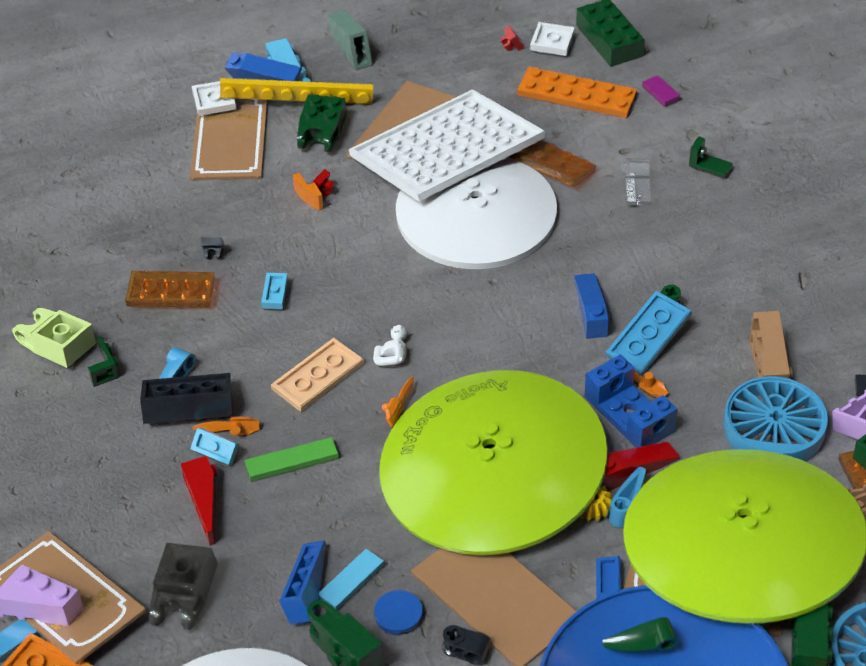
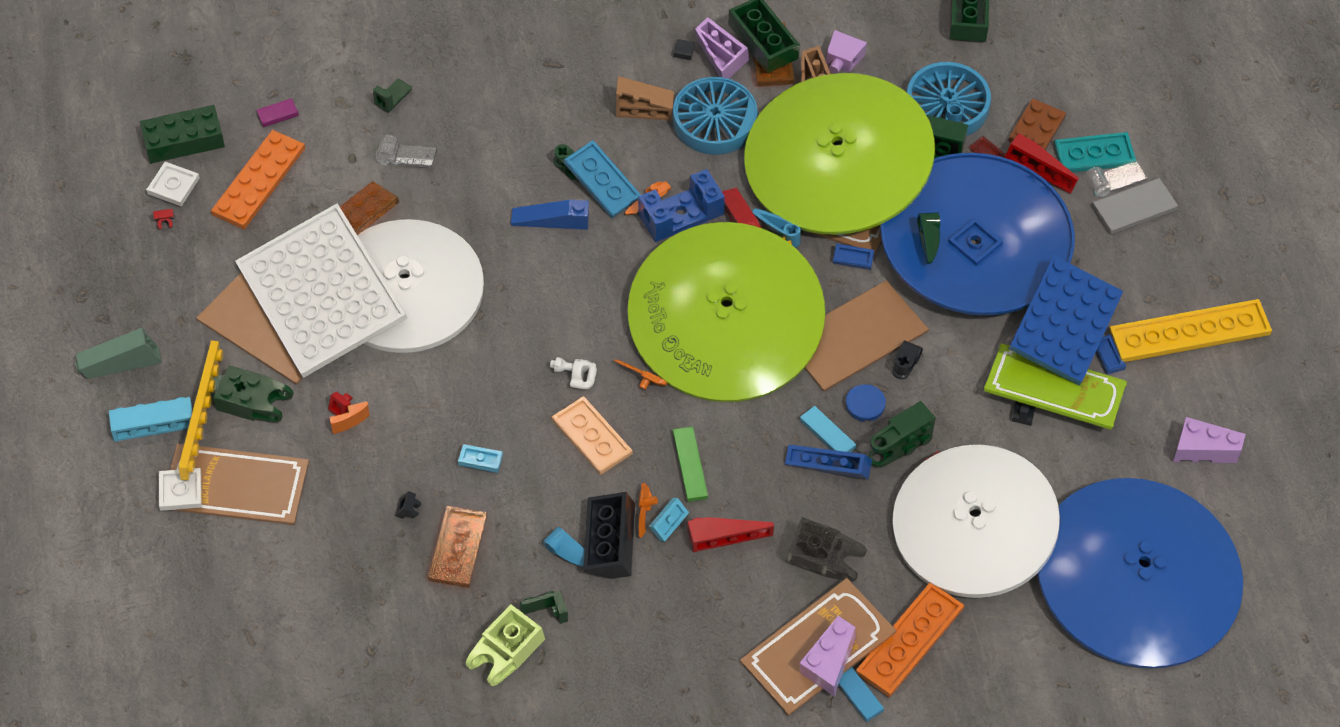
camera: 85 degrees left, 10 degrees up
(259, 68) = (160, 434): blue slope -> none

